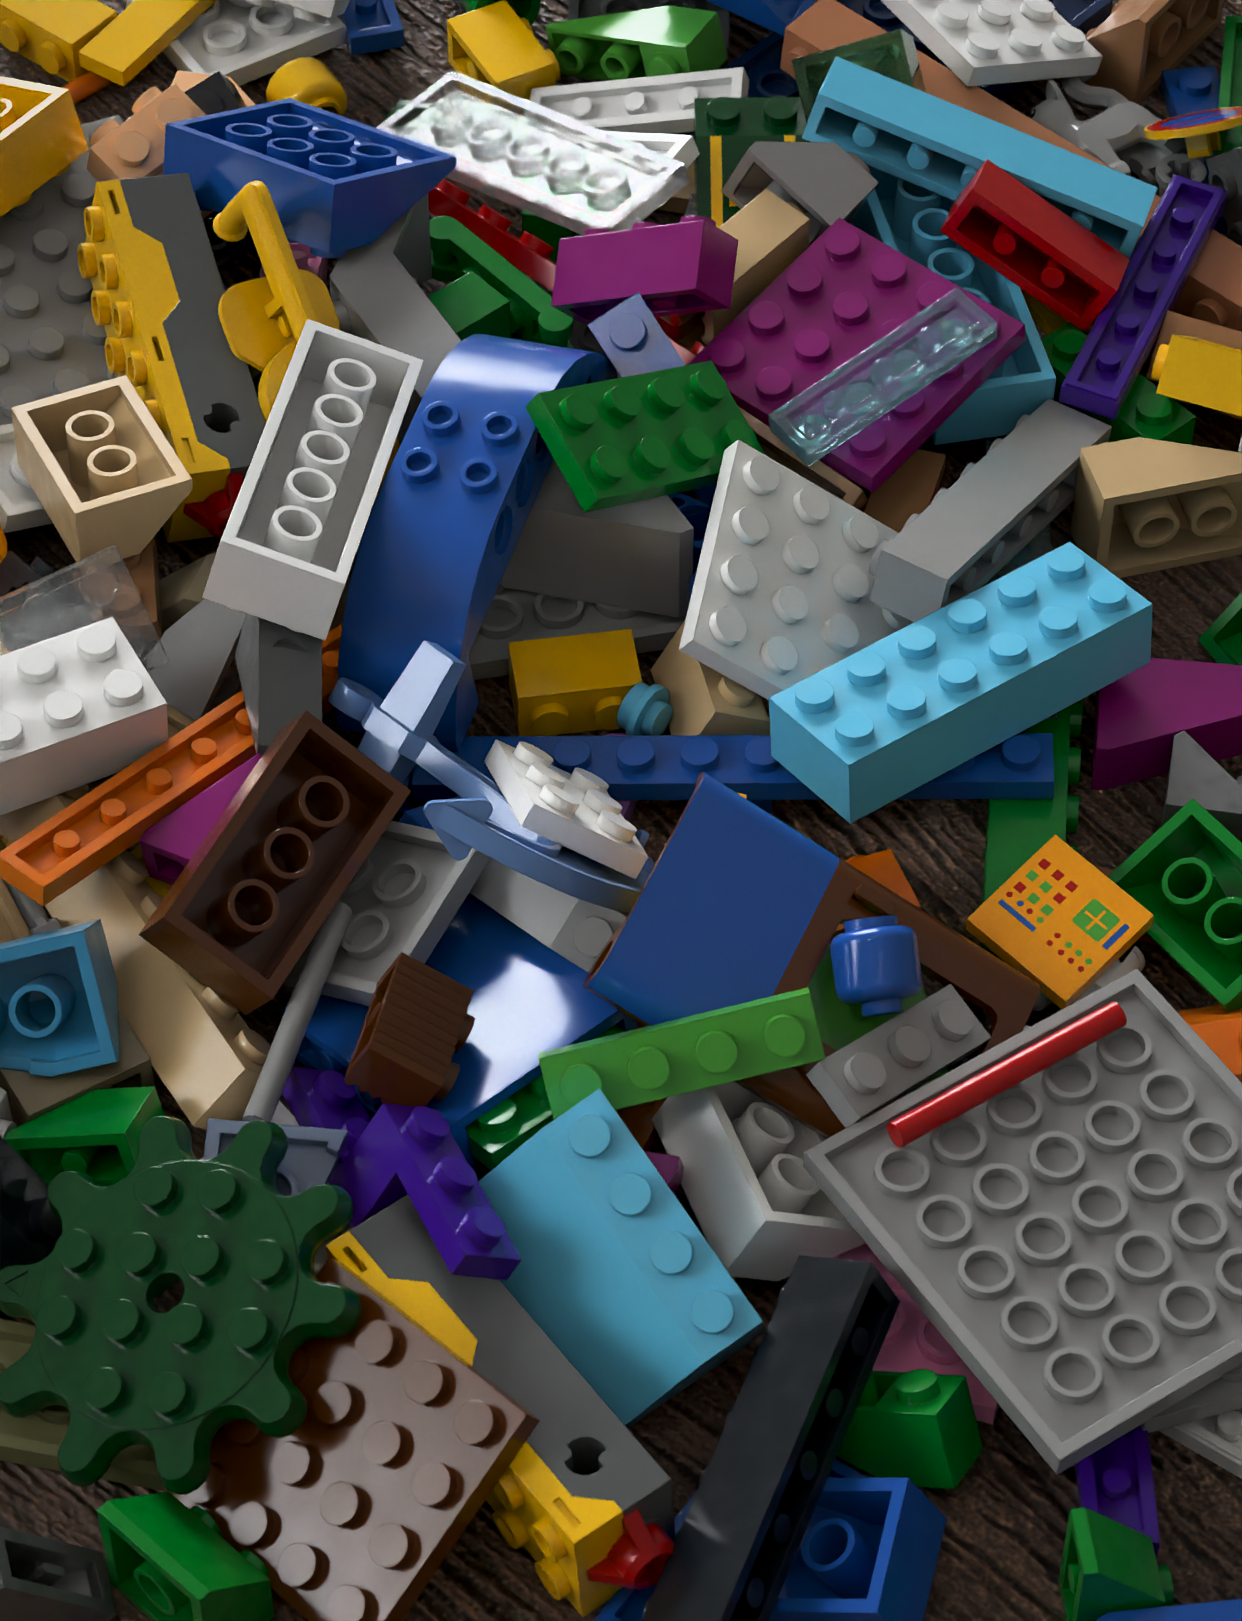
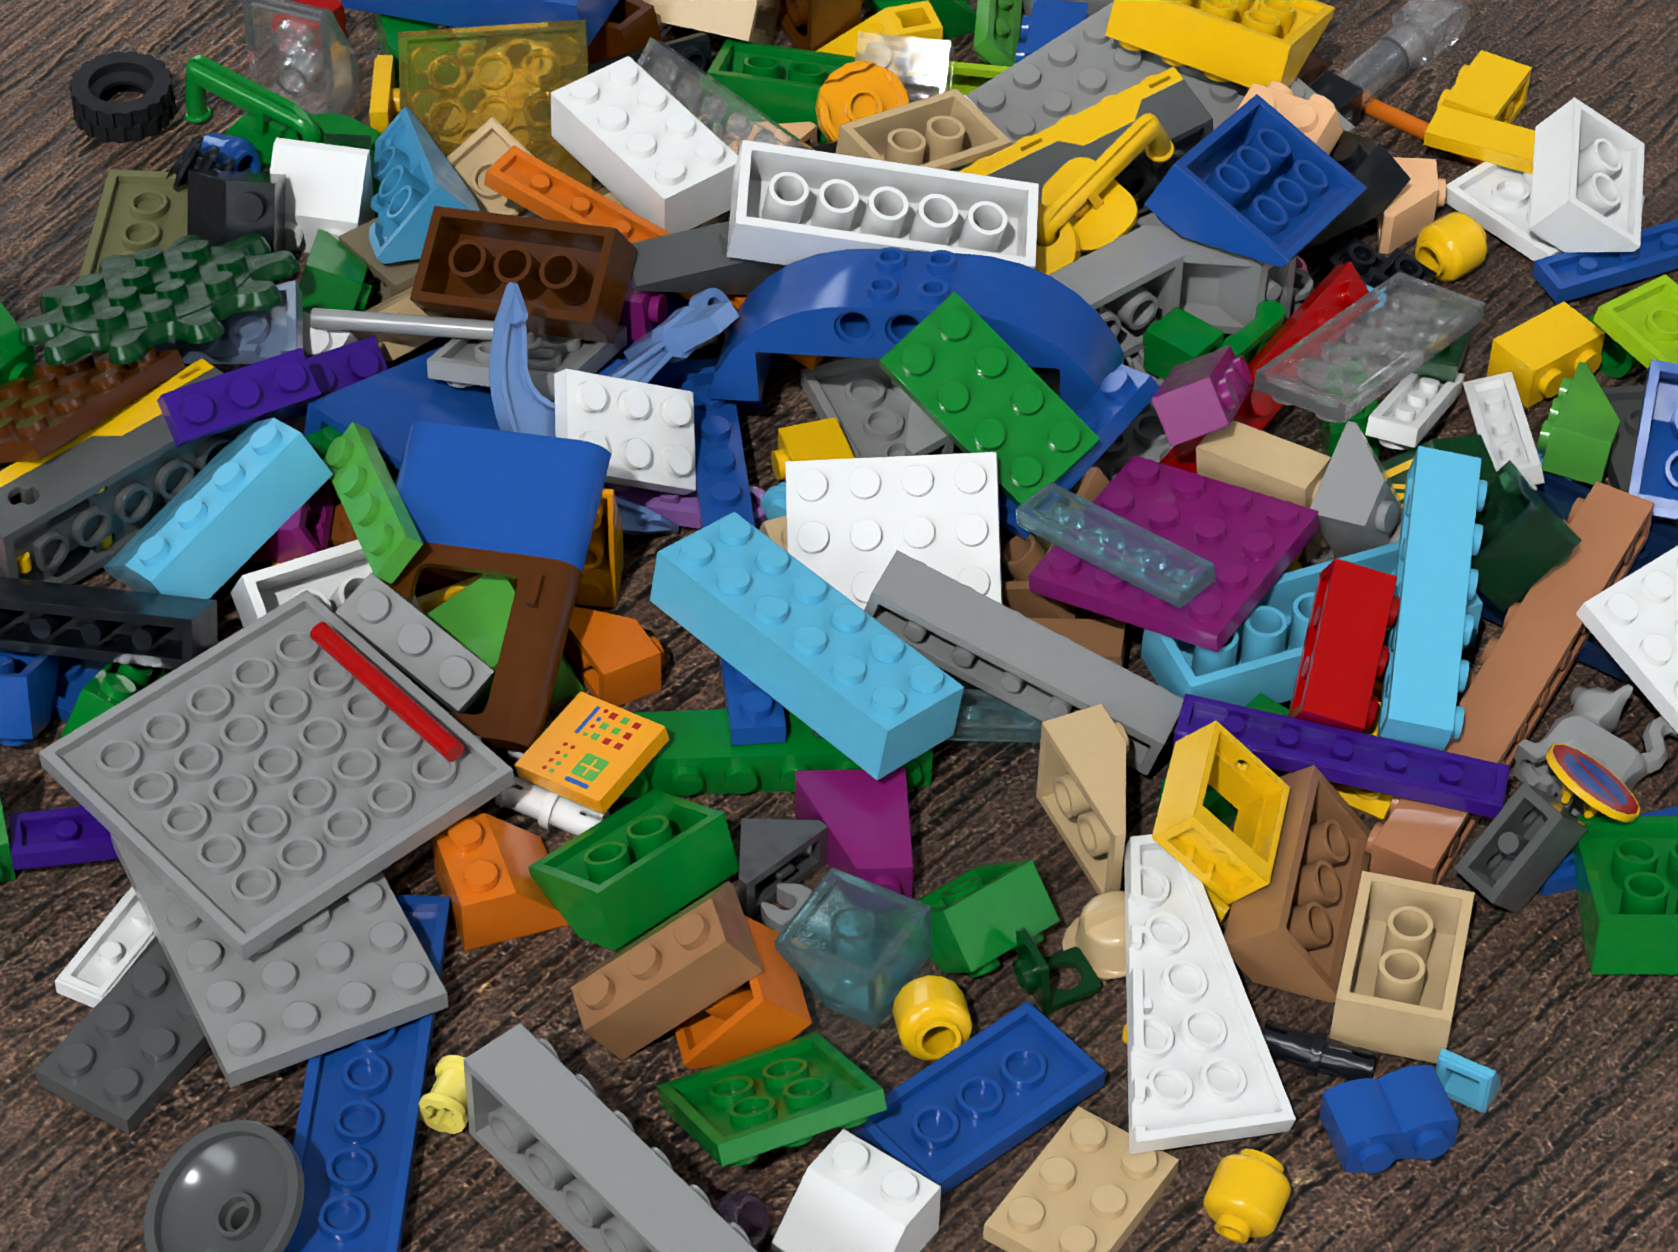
camera: 80 degrees right, 5 degrees down
(411, 1035) = (379, 366): reddish brown brick -> none
(876, 965) = (473, 599): blue head -> none

